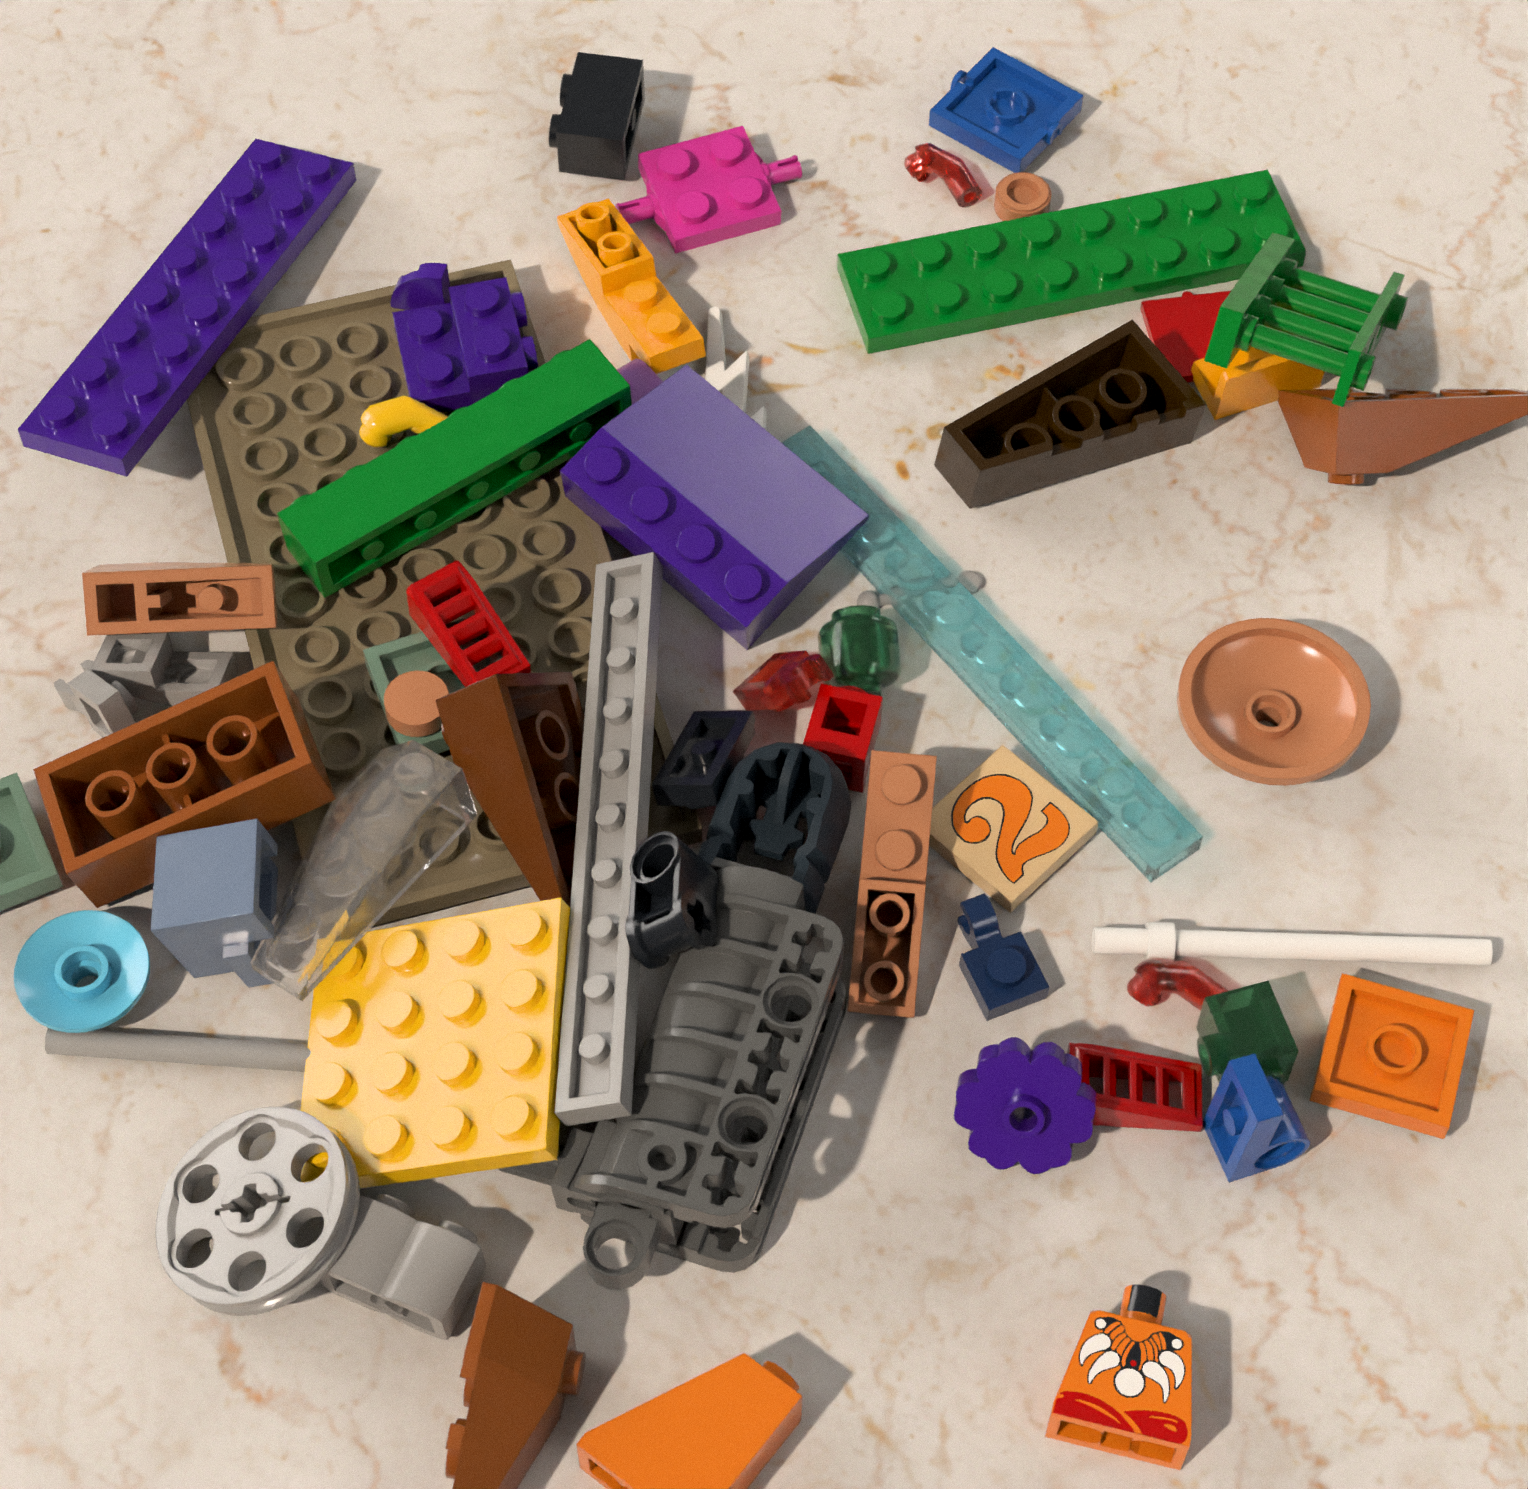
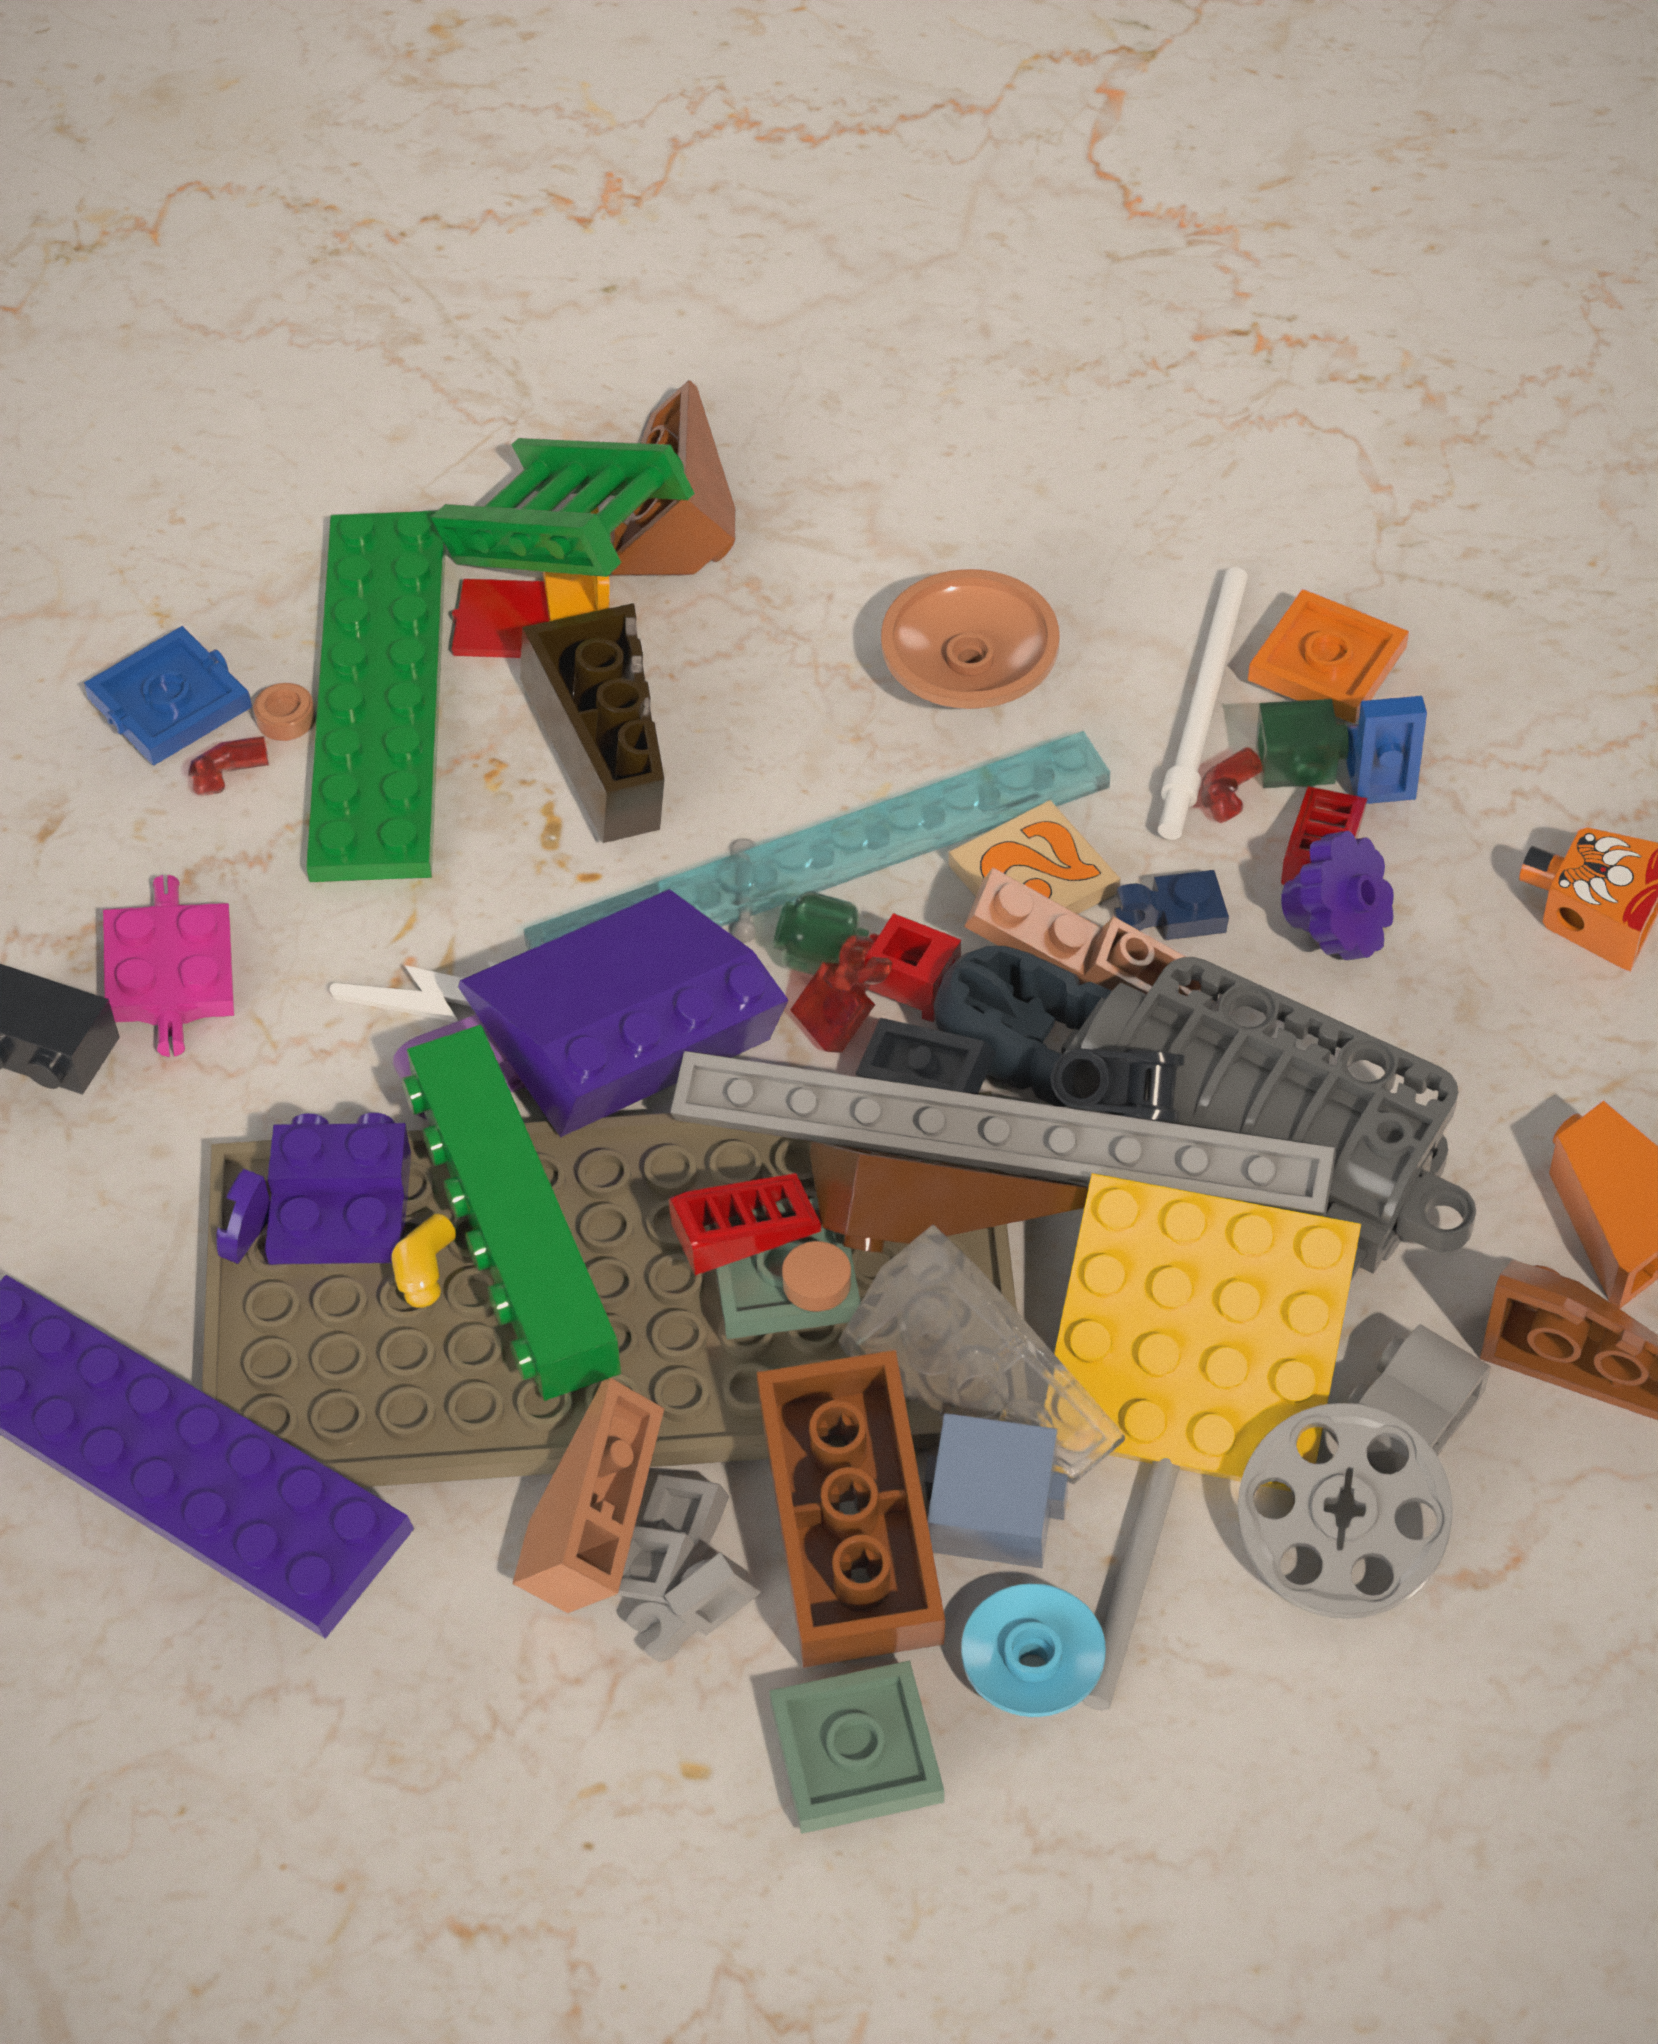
camera: 75 degrees left, 5 degrees down
(626, 288) = (284, 1054): light orange slope -> none

